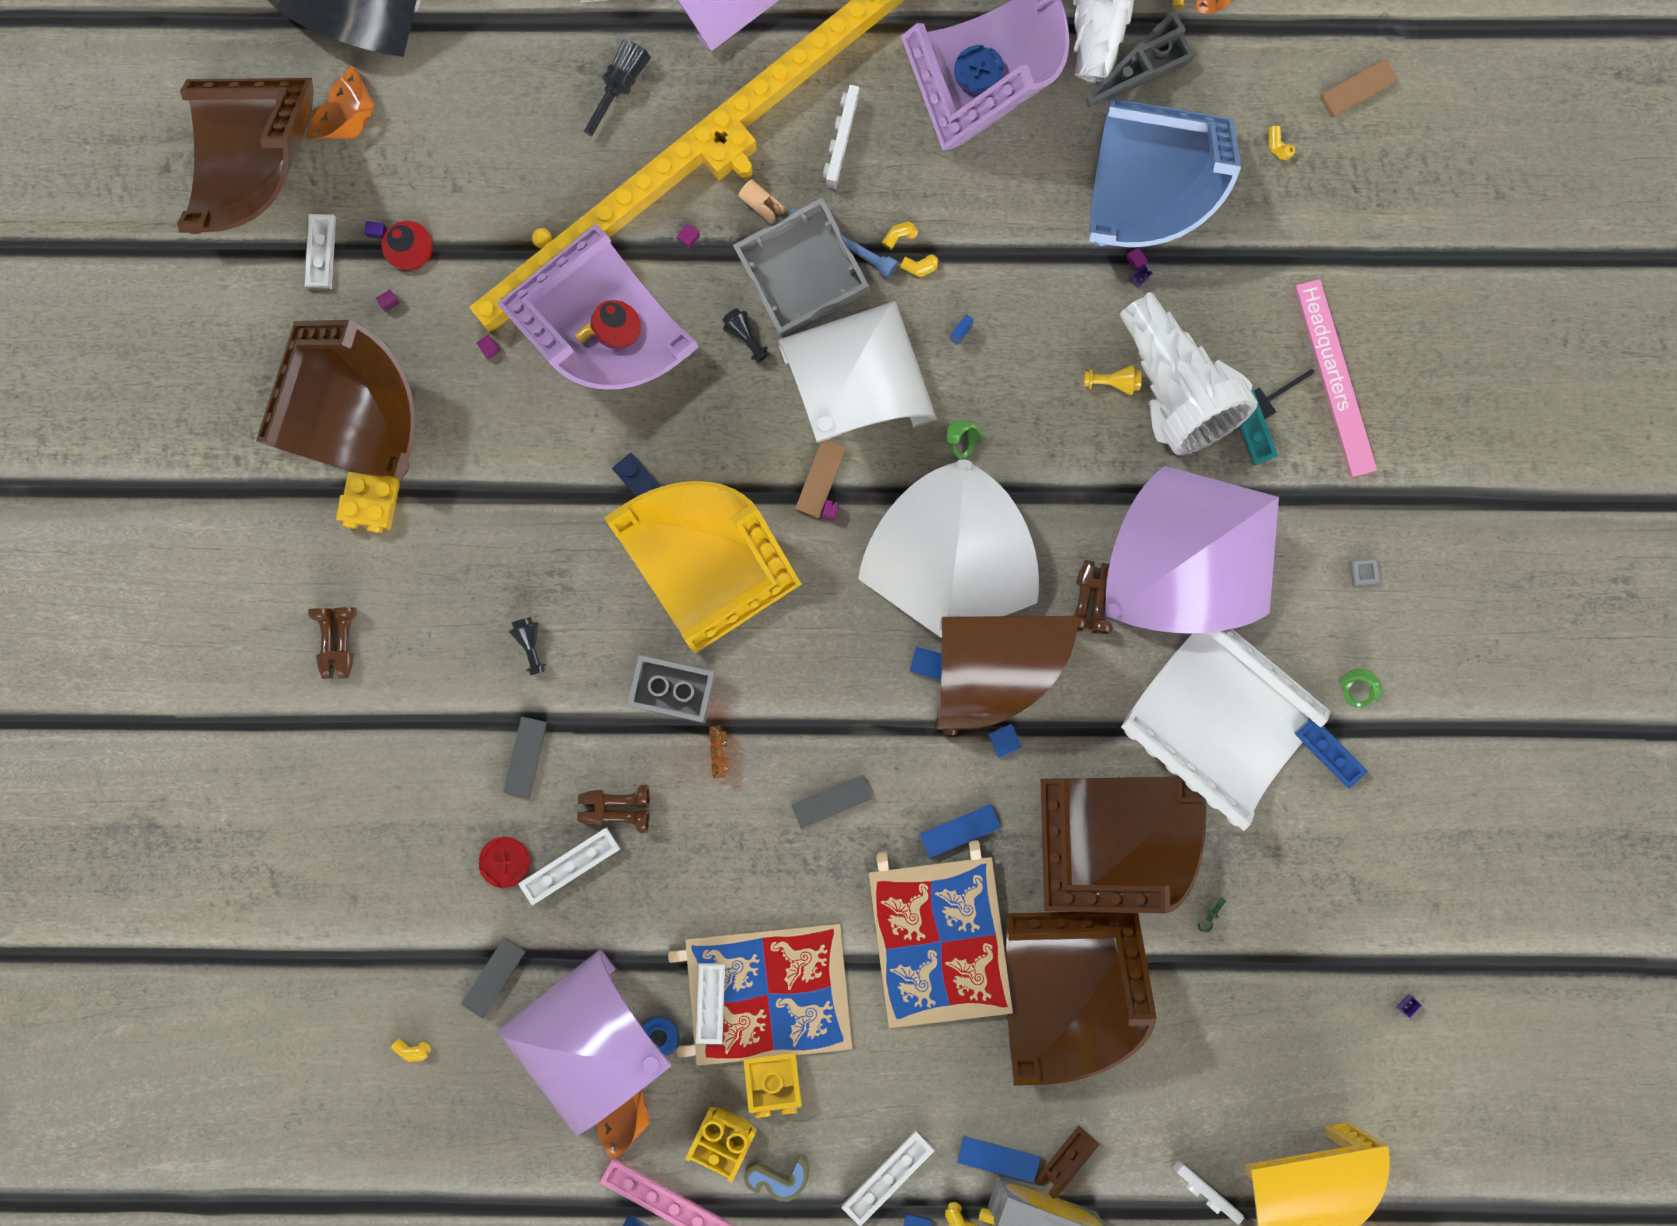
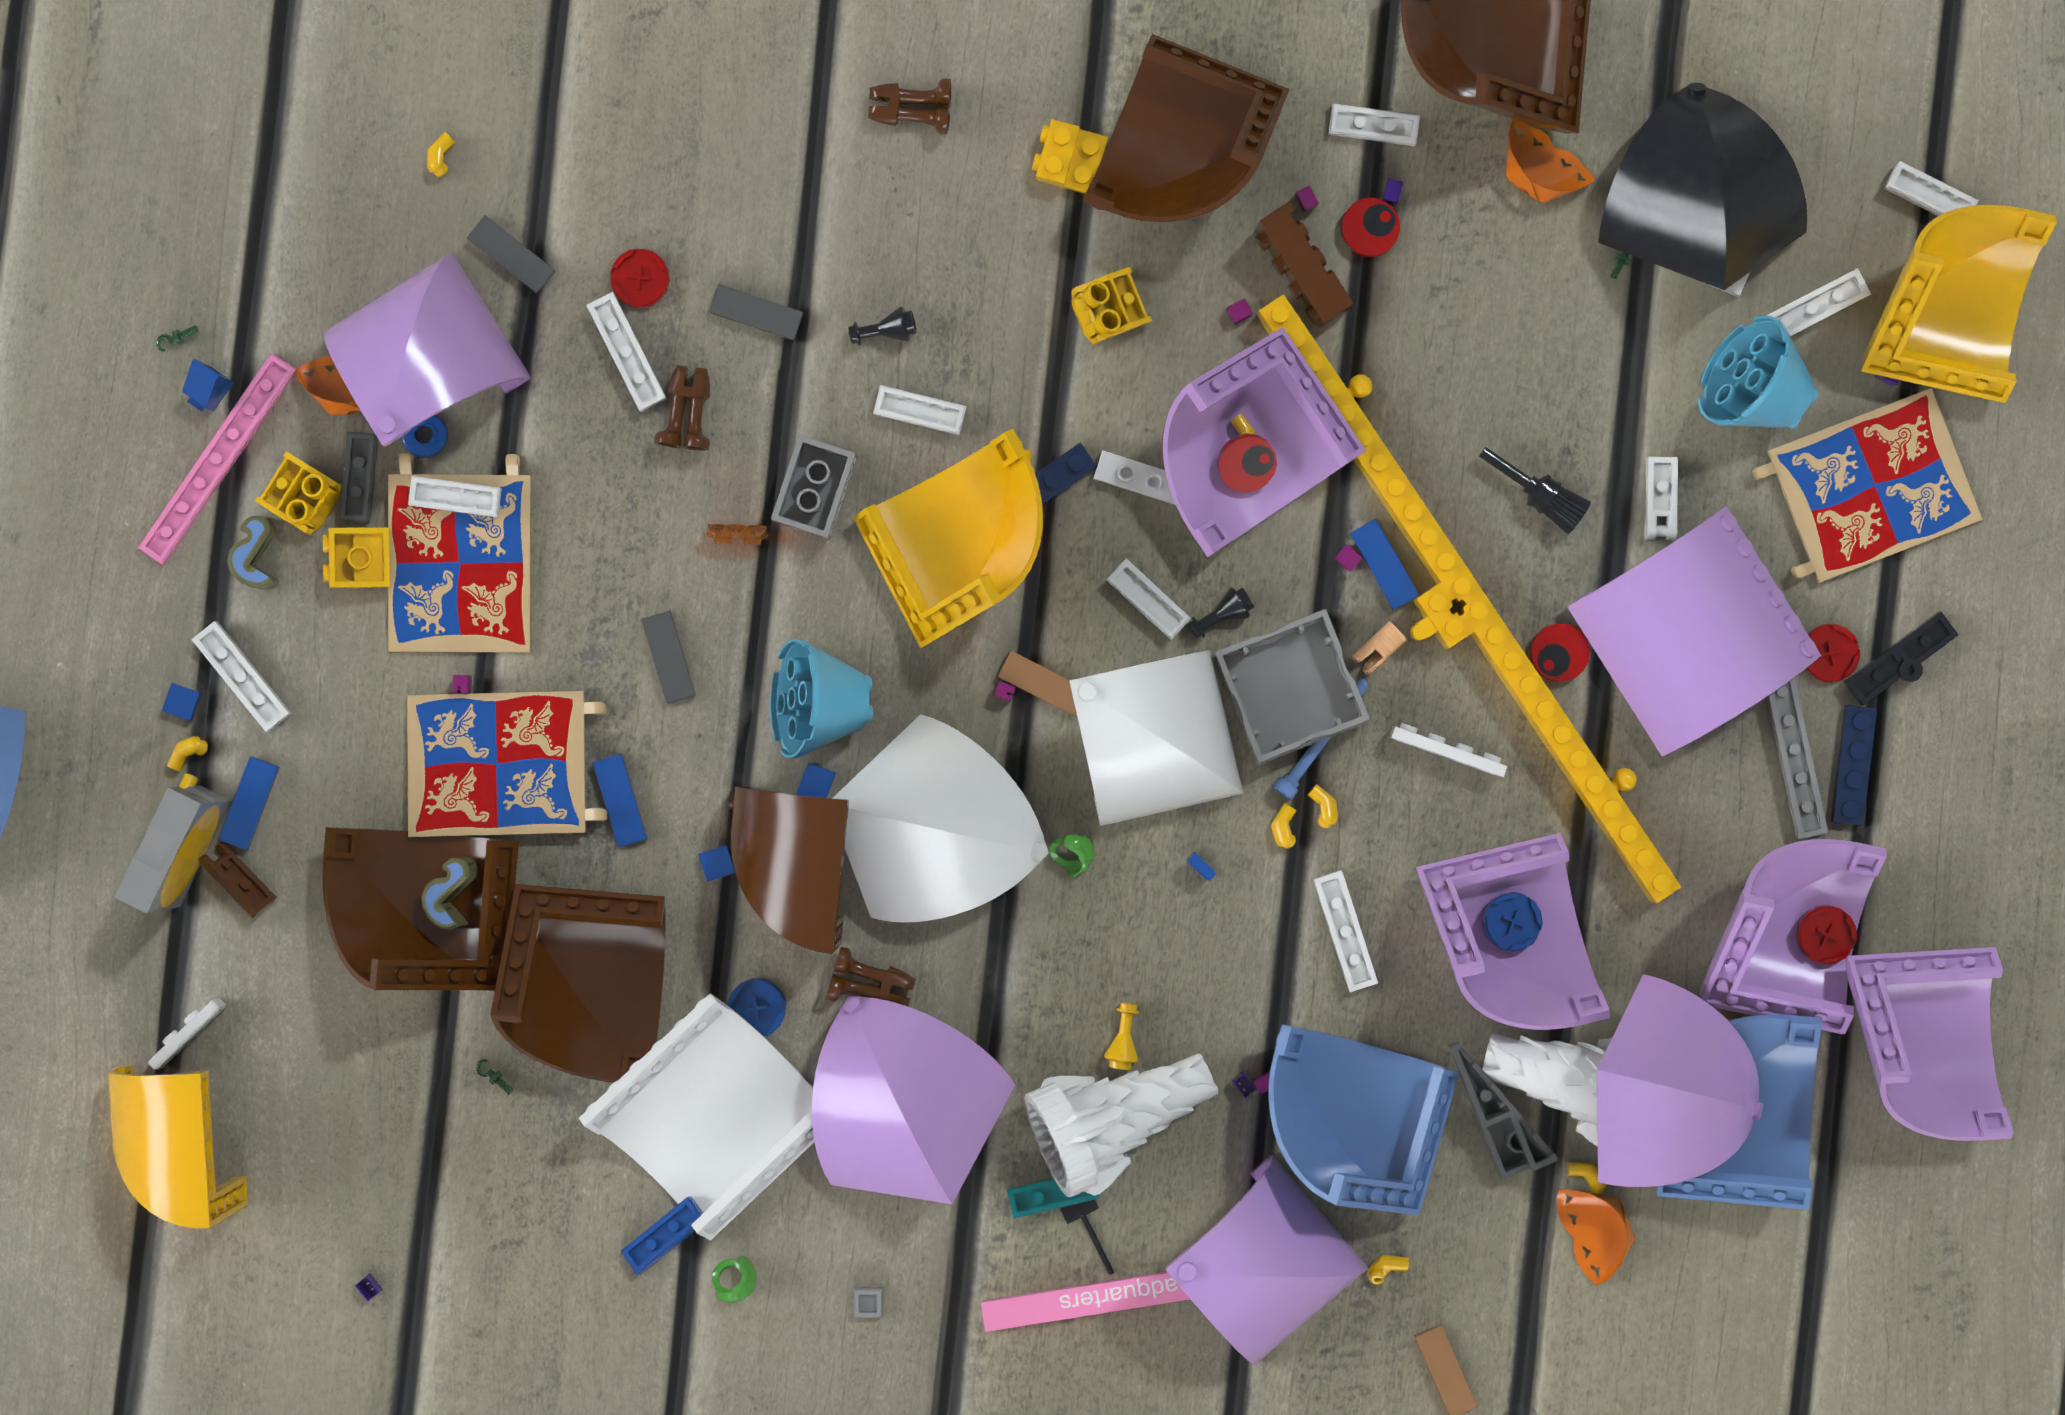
camera: 95 degrees right, 5 degrees up
(417, 37) = (1622, 259): none -> clear green hand
(443, 296) = (1302, 265): none -> reddish brown wedge
(493, 455) = (1109, 306): none -> yellow slope
(597, 607) = (919, 410): none -> white plate
(637, 417) = (1133, 477): none -> white plate
(690, 205) = (1384, 564): none -> blue tile
(701, 1092) = (358, 477): none -> dark grey tile
(739, 397) = (1148, 599): none -> white plate
(749, 54) = (1559, 652): none -> red tile
(855, 668) = (816, 699): none -> medium azure cone
(873, 980) = (462, 683): none -> magenta piece
(1002, 205) = (1345, 931): none -> white plate
(1058, 978) = (441, 891): none -> olive animal
(1121, 691) = (759, 1004): none -> blue tile
(1292, 233) = (1266, 1264): none -> lavender panel

